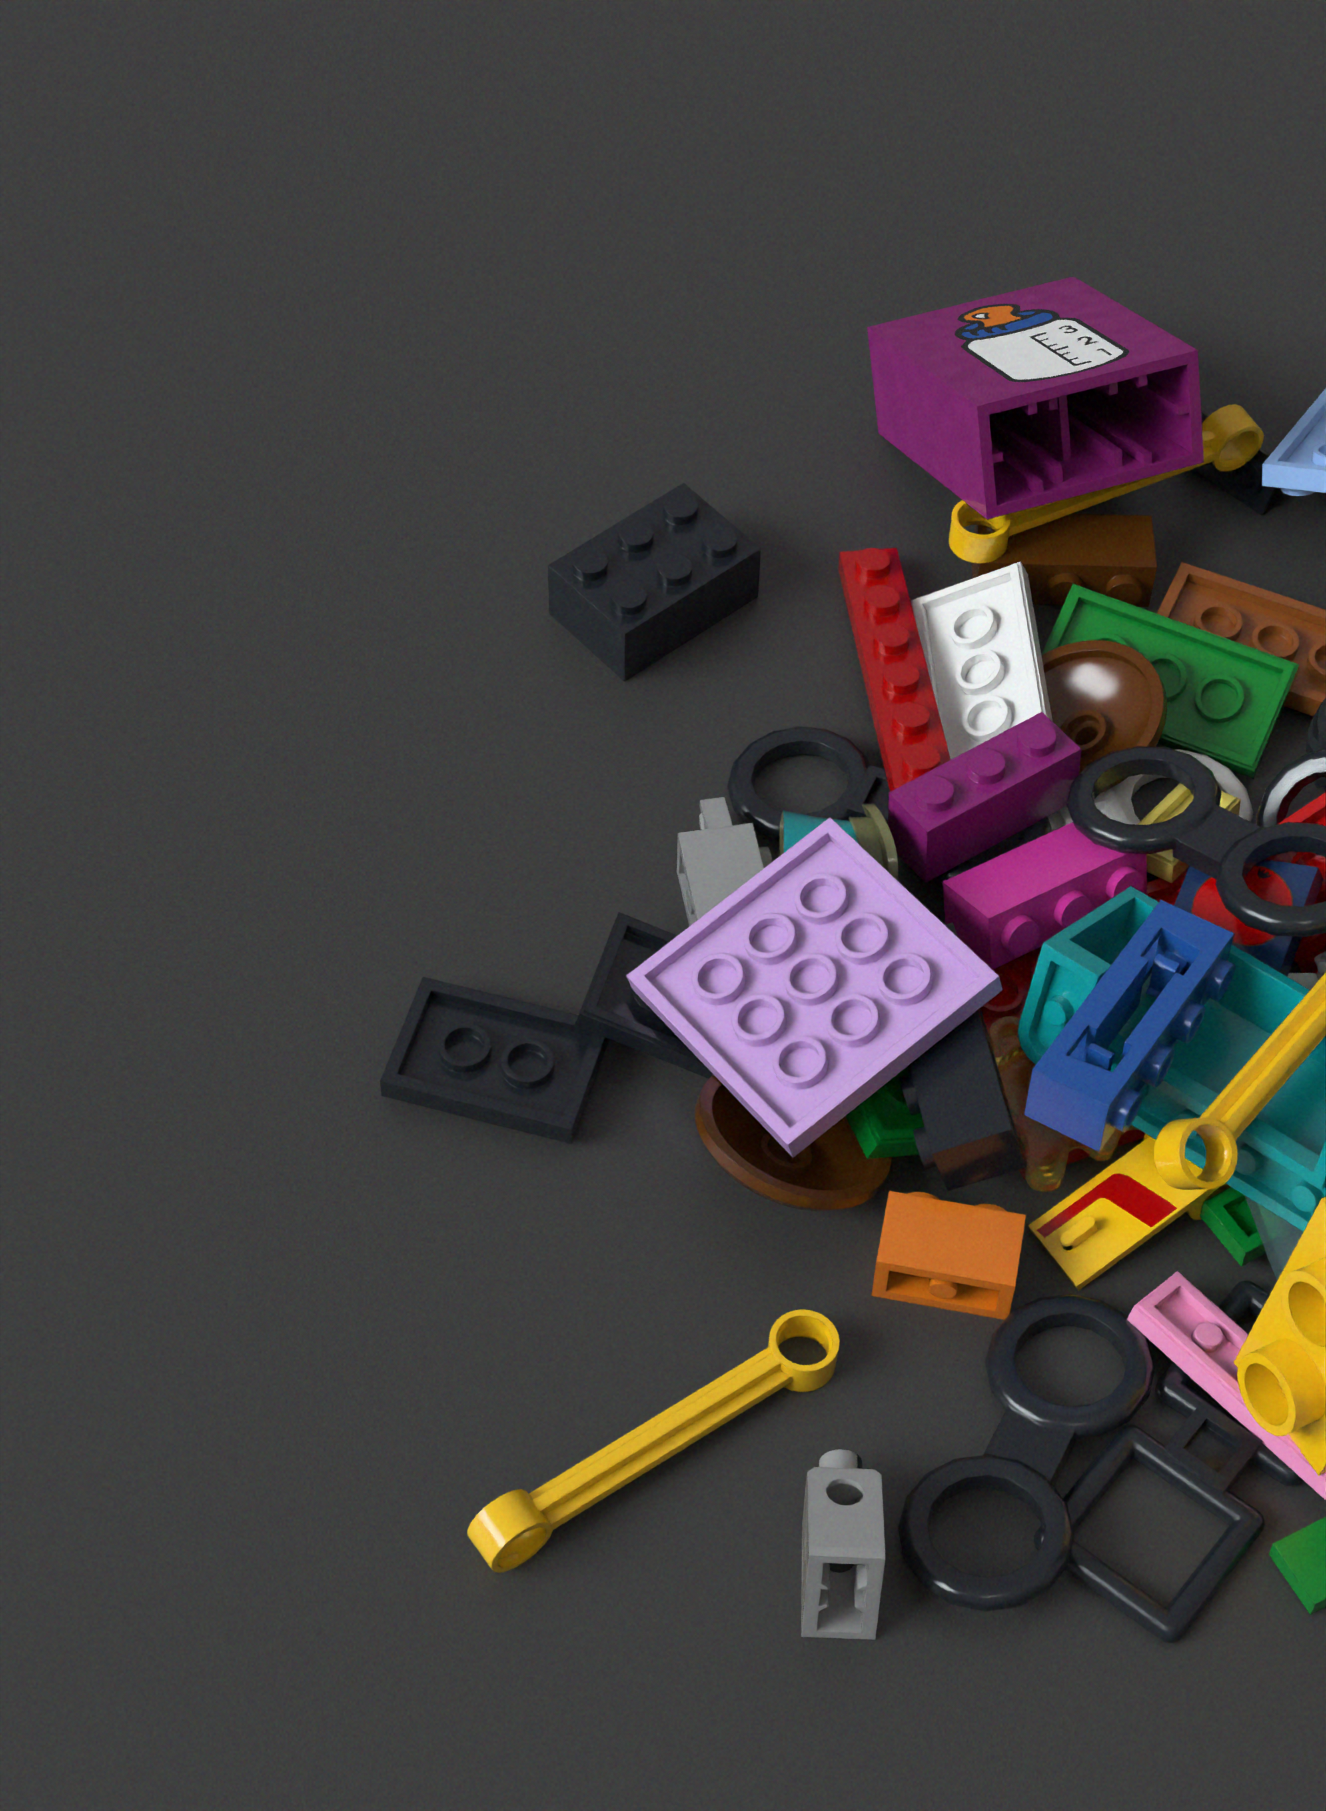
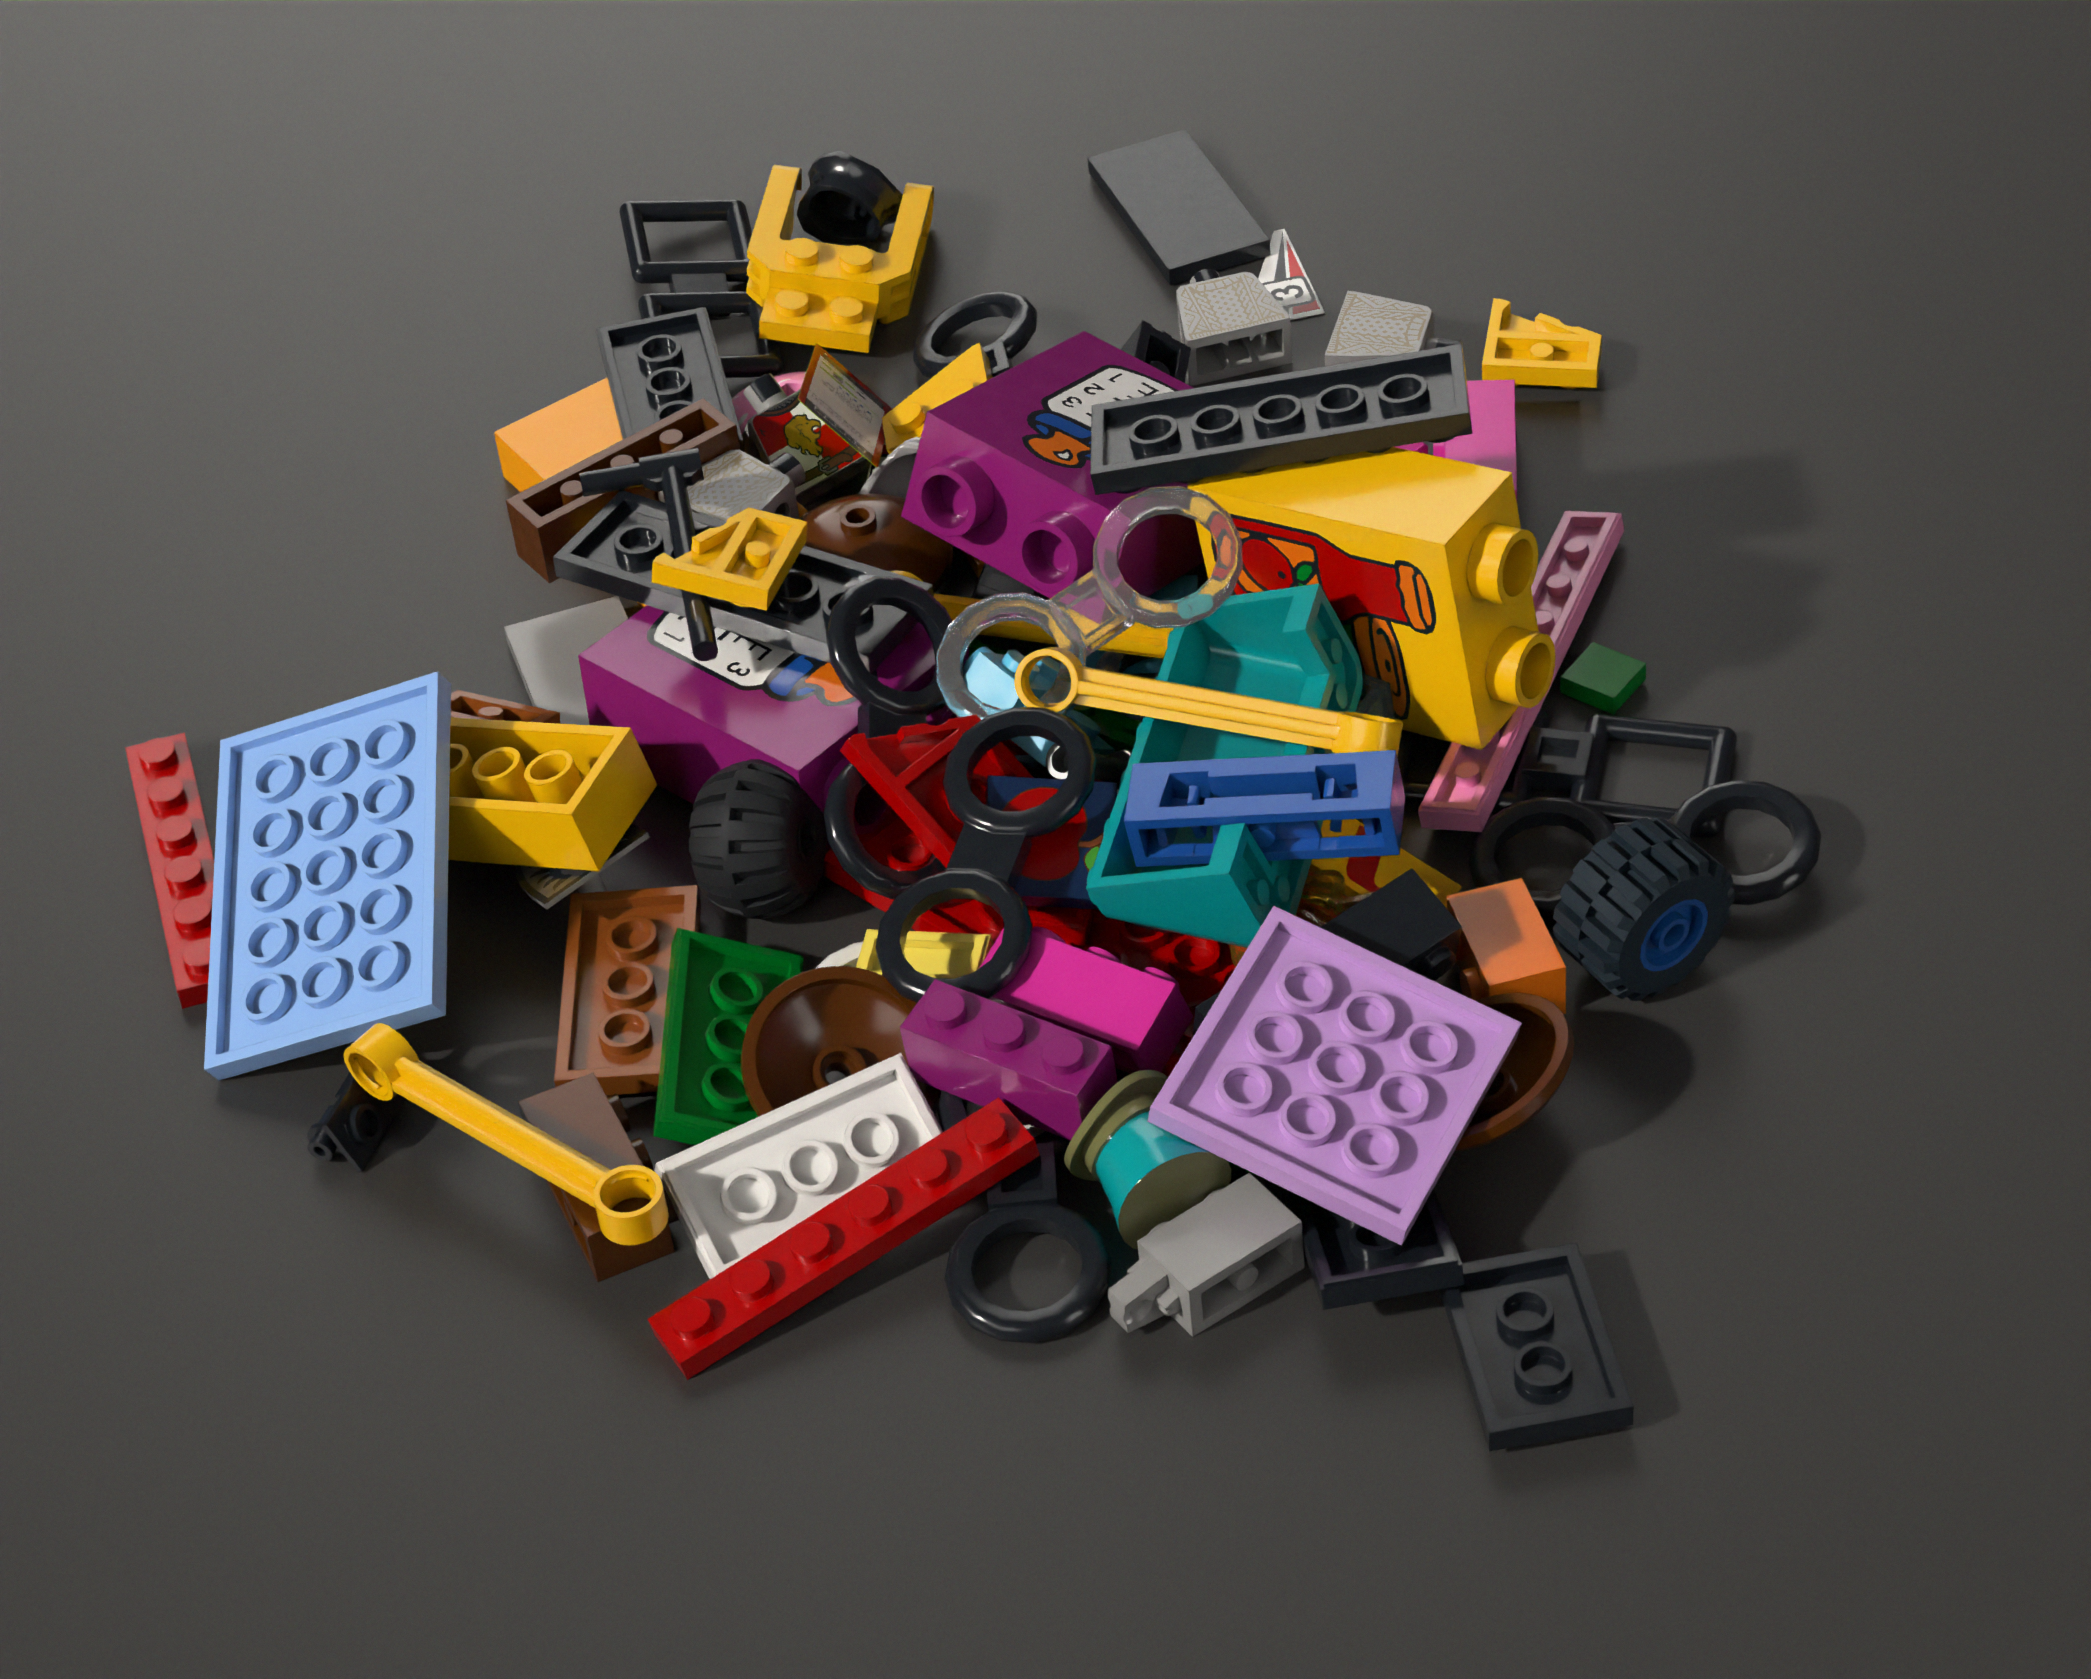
camera: 110 degrees left, 10 degrees down
(521, 1523) = (1831, 1066): yellow piece -> none
(653, 581) = (828, 1488): black brick -> none
(842, 1527) = (1834, 898): light grey torso -> none
(903, 1348) = (1643, 908): none -> black wheel
(1036, 396) = (419, 1209): magenta brick -> none

